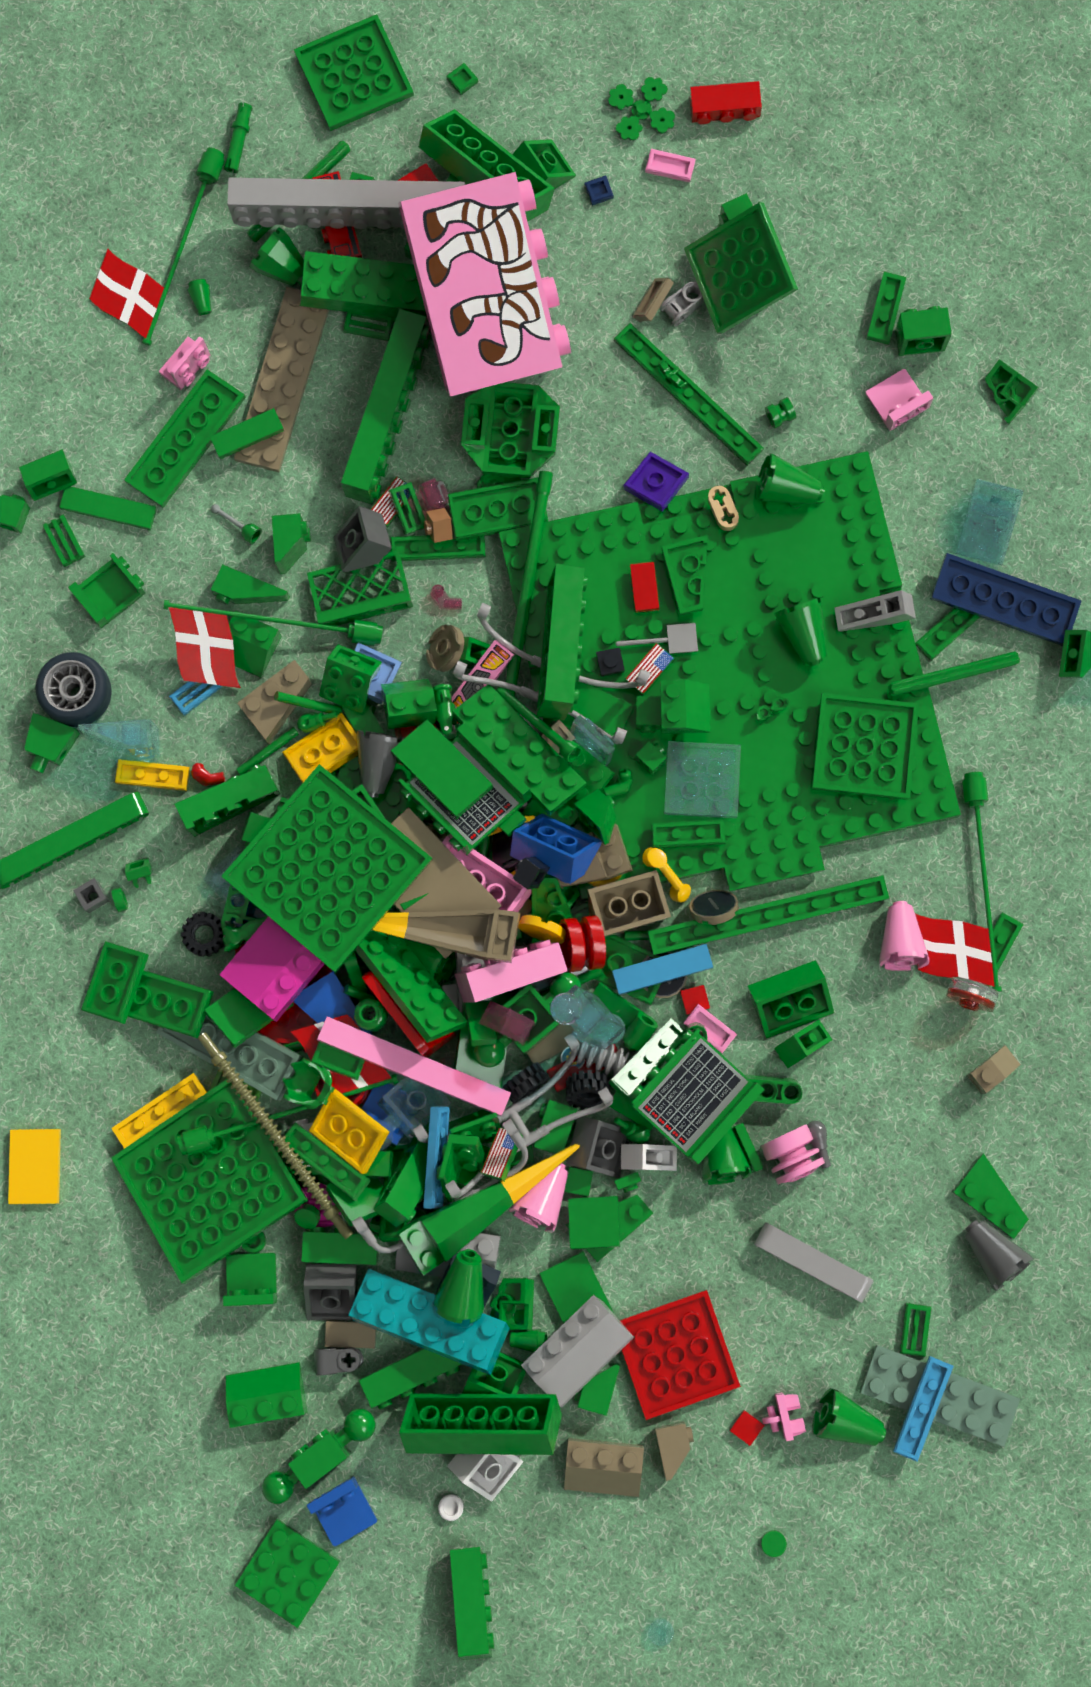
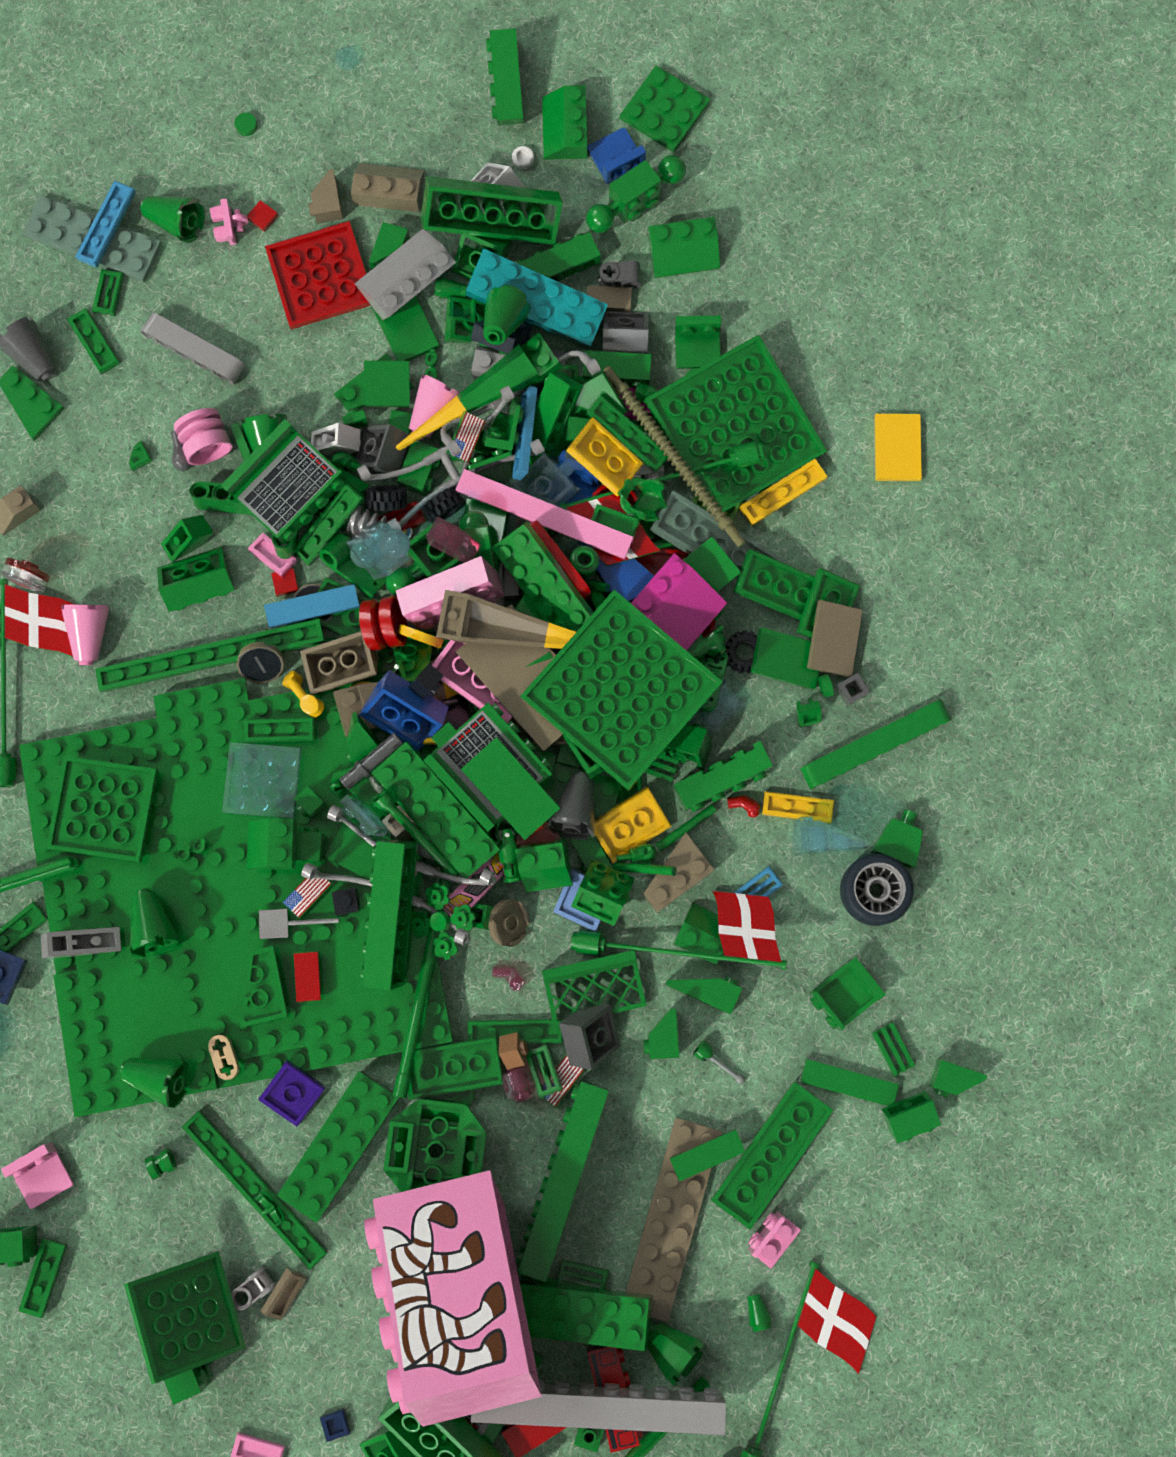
camera: 175 degrees right, 0 degrees up
(108, 948) = (834, 638): none -> dark tan tile
(159, 926) = (783, 659): none -> green tile
(402, 1549) = (565, 123): none -> green slope
(510, 638) = (441, 921): none -> green plant
(547, 1256) = (431, 361): none -> green piece
(583, 796) = (367, 764): none -> dark grey pin
(606, 433) = (338, 1146): none -> green brick
(863, 1137) = (139, 456): none -> green tile
(926, 1271) = (93, 341): none -> green tile

